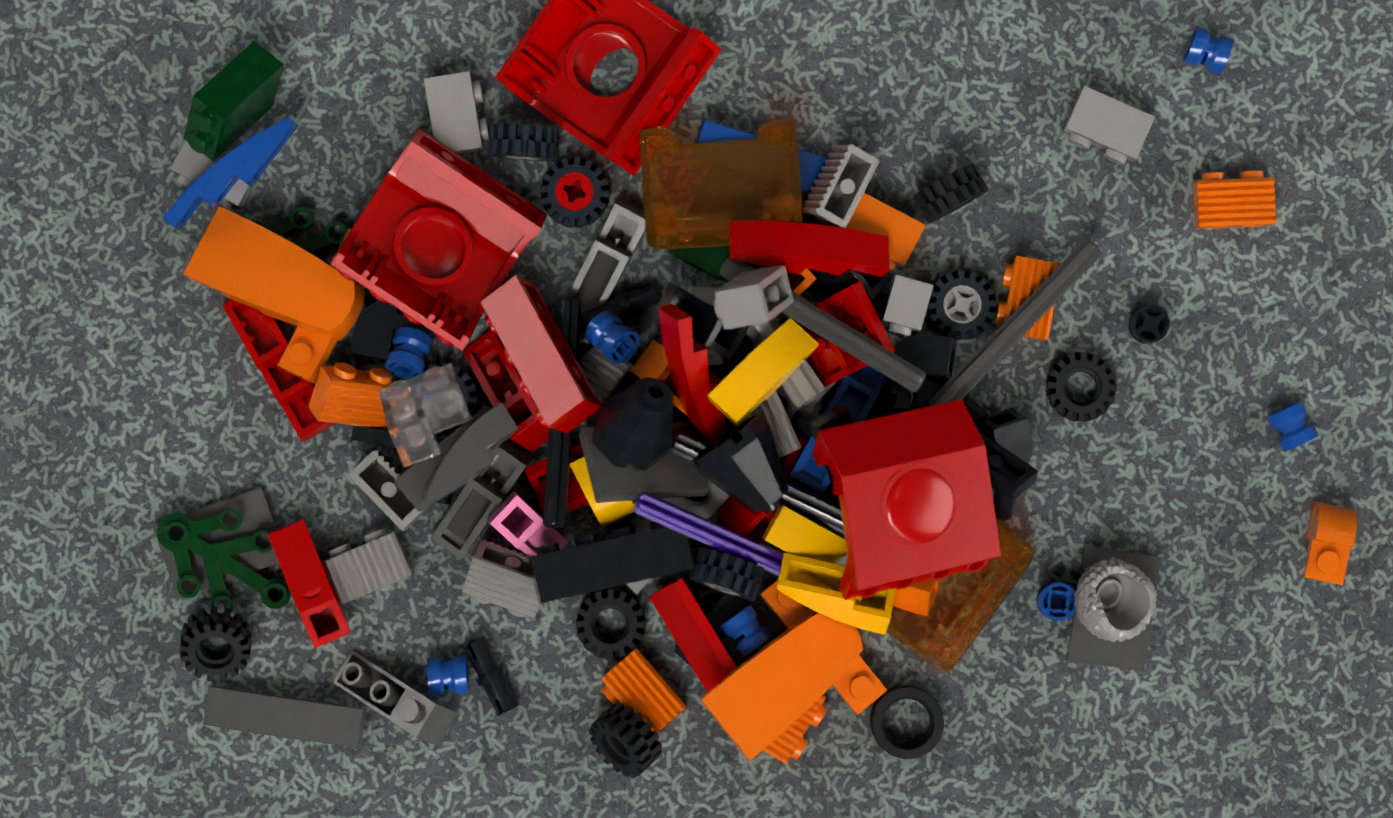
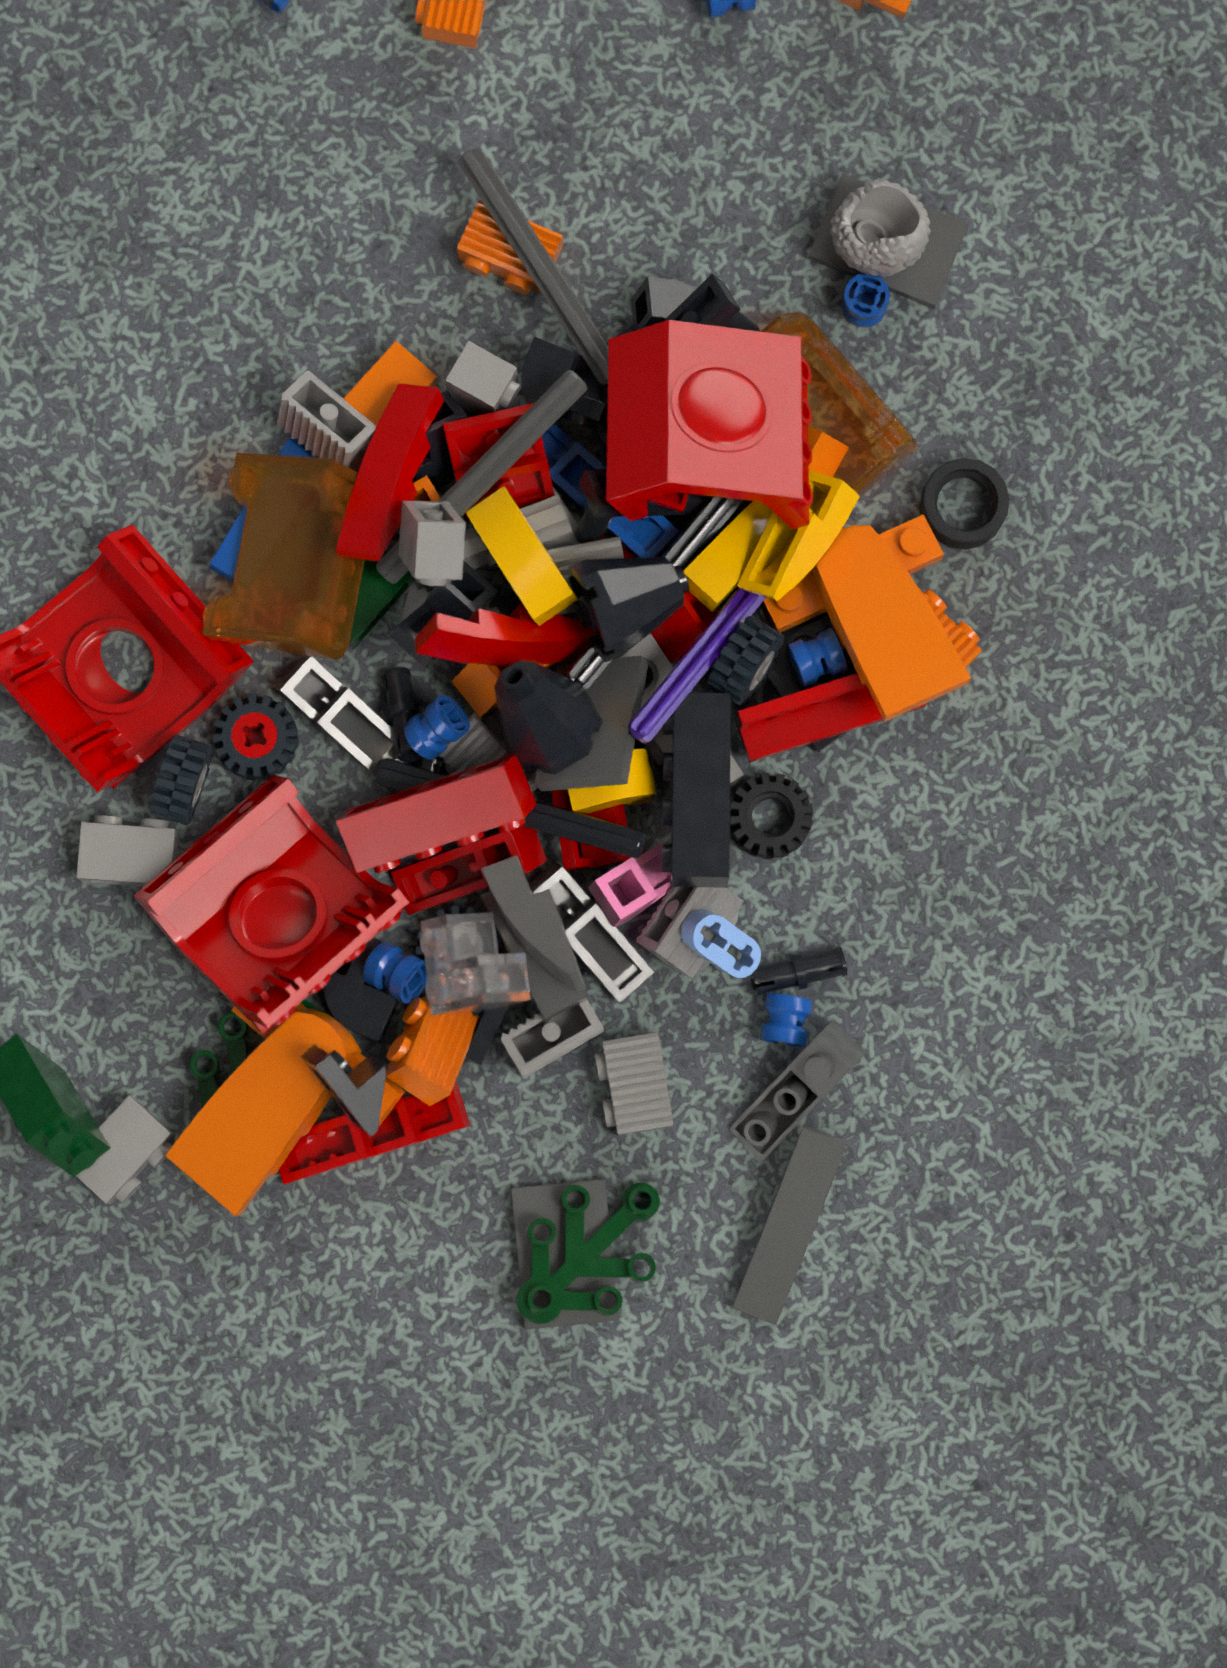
camera: 80 degrees left, 5 degrees down
(211, 661) = (662, 1284): black tyre -> none
(243, 162) = (122, 1111): blue slope -> none
(301, 345) = (354, 1090): none -> slope
(309, 583) = (639, 1154): red slope -> none
(486, 606) = (726, 935): none -> light blue beam
(625, 740) = (911, 827): black tyre -> none
(644, 689) = (861, 797): orange brick -> none
(950, 193) = (366, 304): black tyre -> none
(972, 297) = (493, 311): black wheel -> none
(1103, 378) = (625, 188): black tyre -> none
(1107, 125) = (333, 112): light grey brick -> none
(1154, 320) = (570, 112): black wheel -> none

